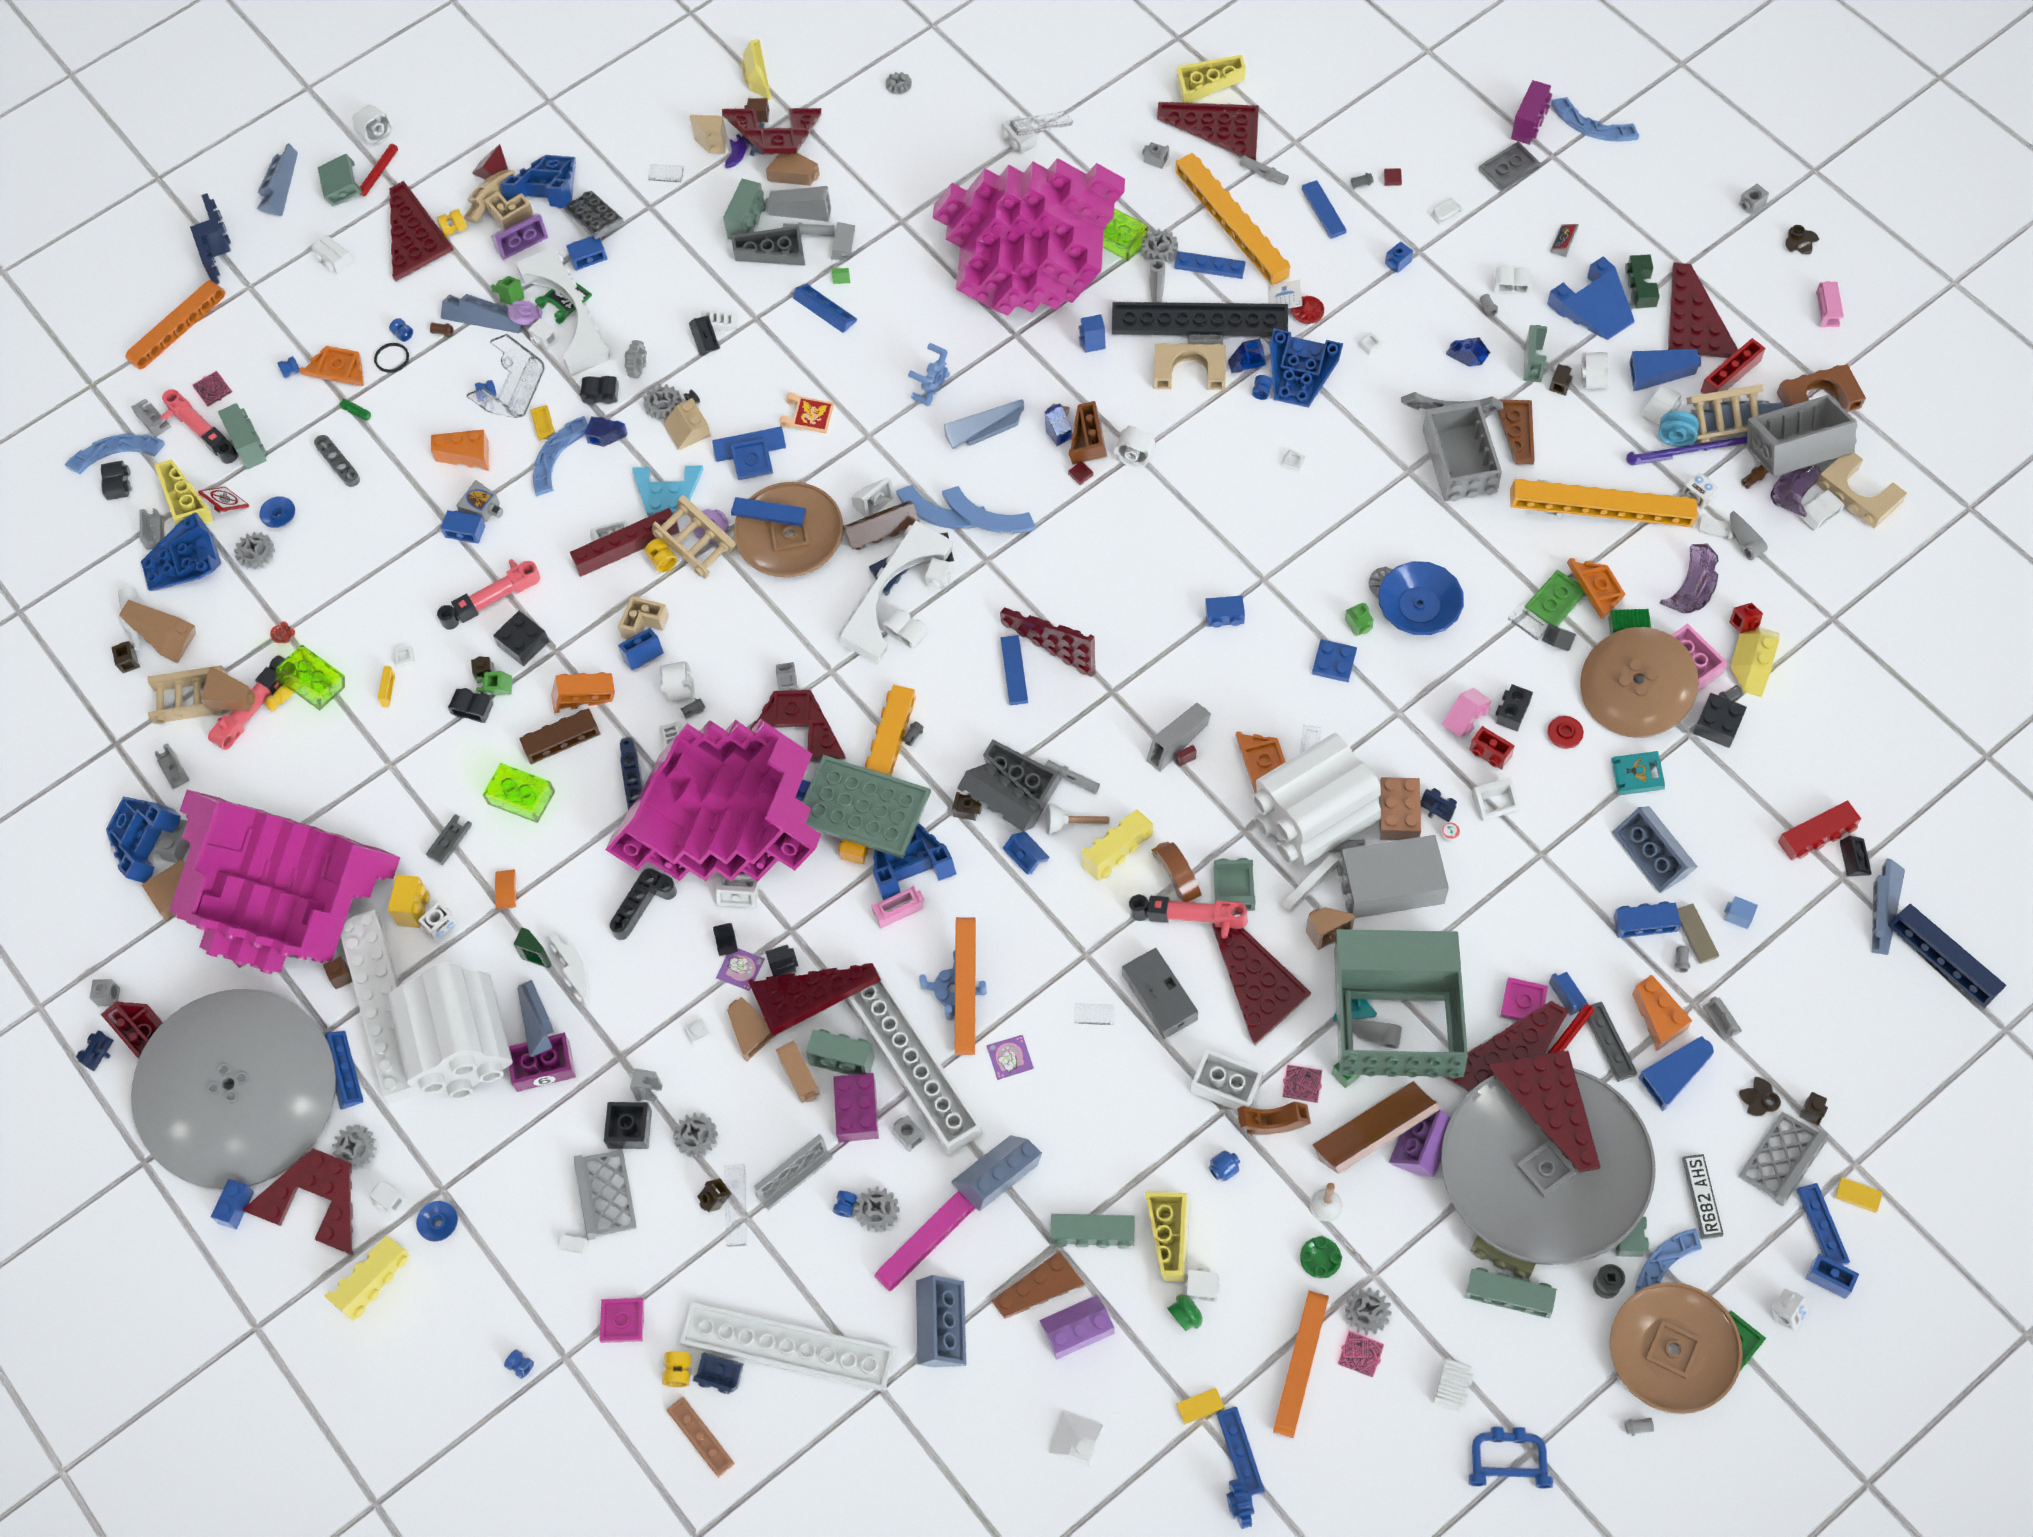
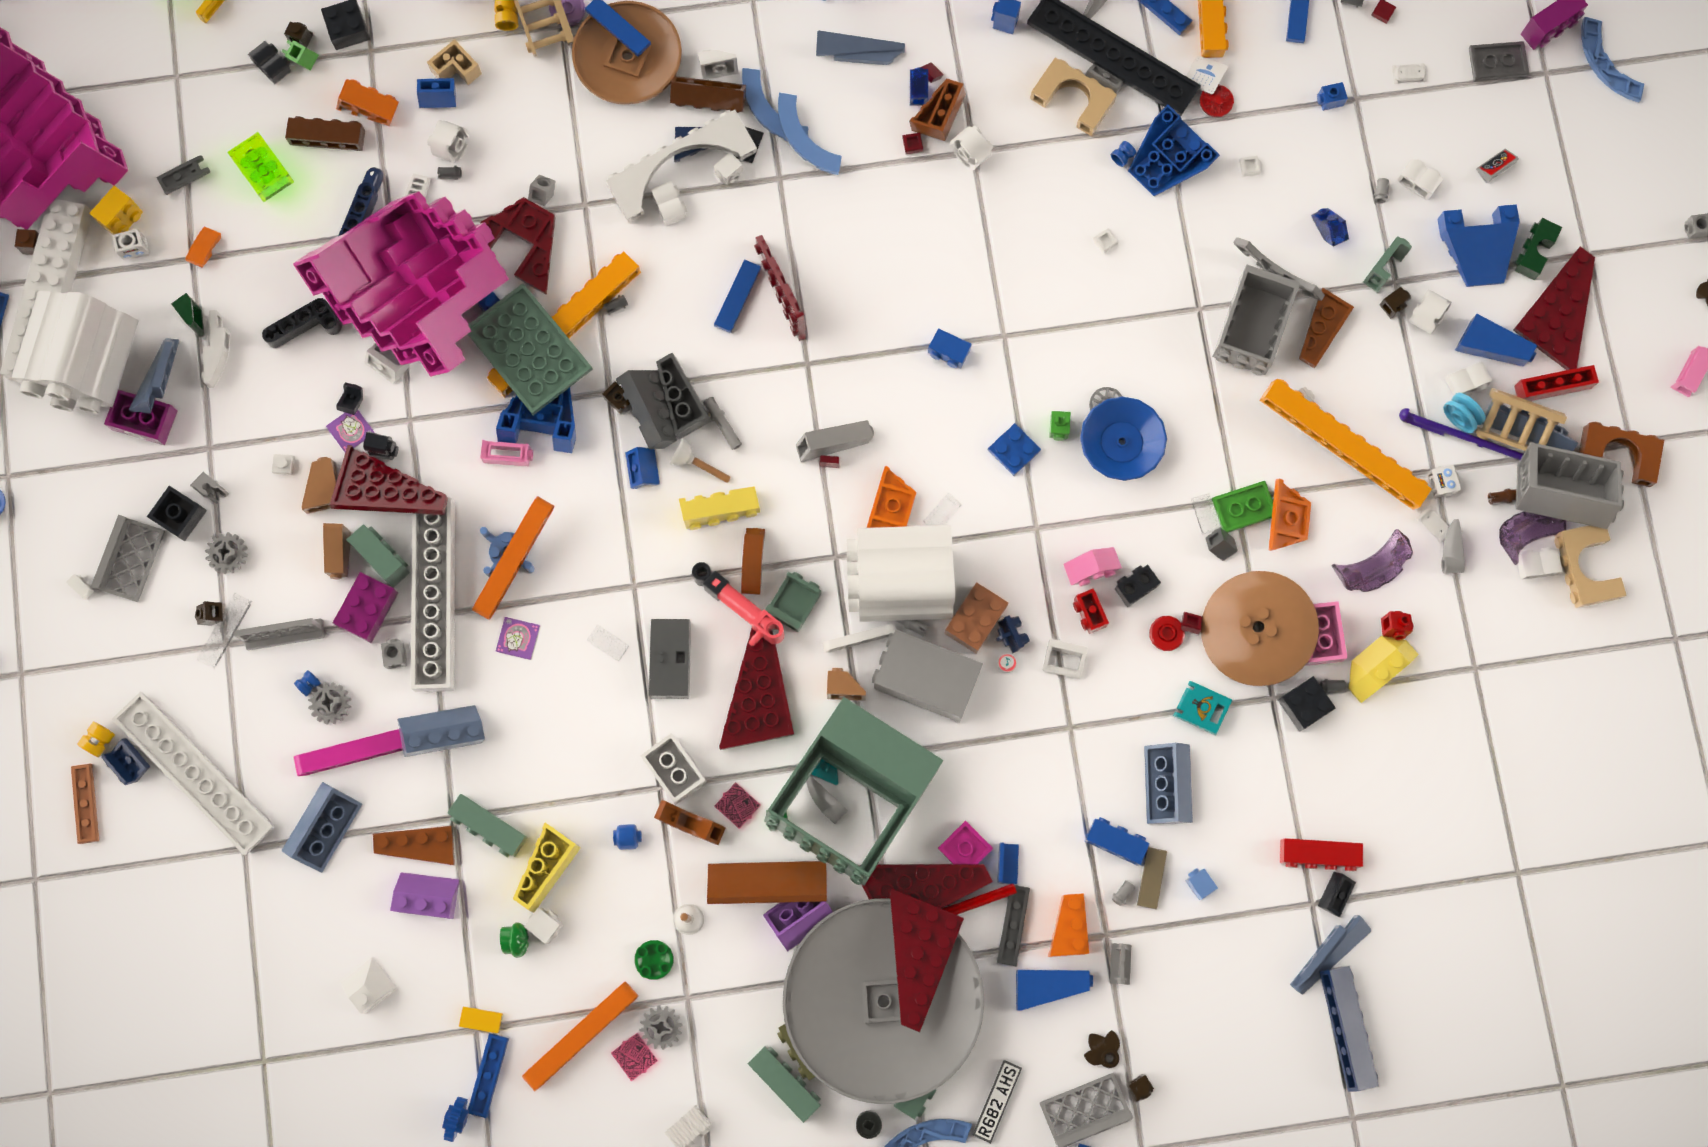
camera: 25 degrees right, 15 degrees up
(622, 1320) = (79, 672): dark pink plate -> none
(1247, 356) = (1129, 116): clear blue slope -> none
(1579, 711) = (1191, 623): none -> dark red tile
(1628, 618) = (1292, 567): green brick -> none

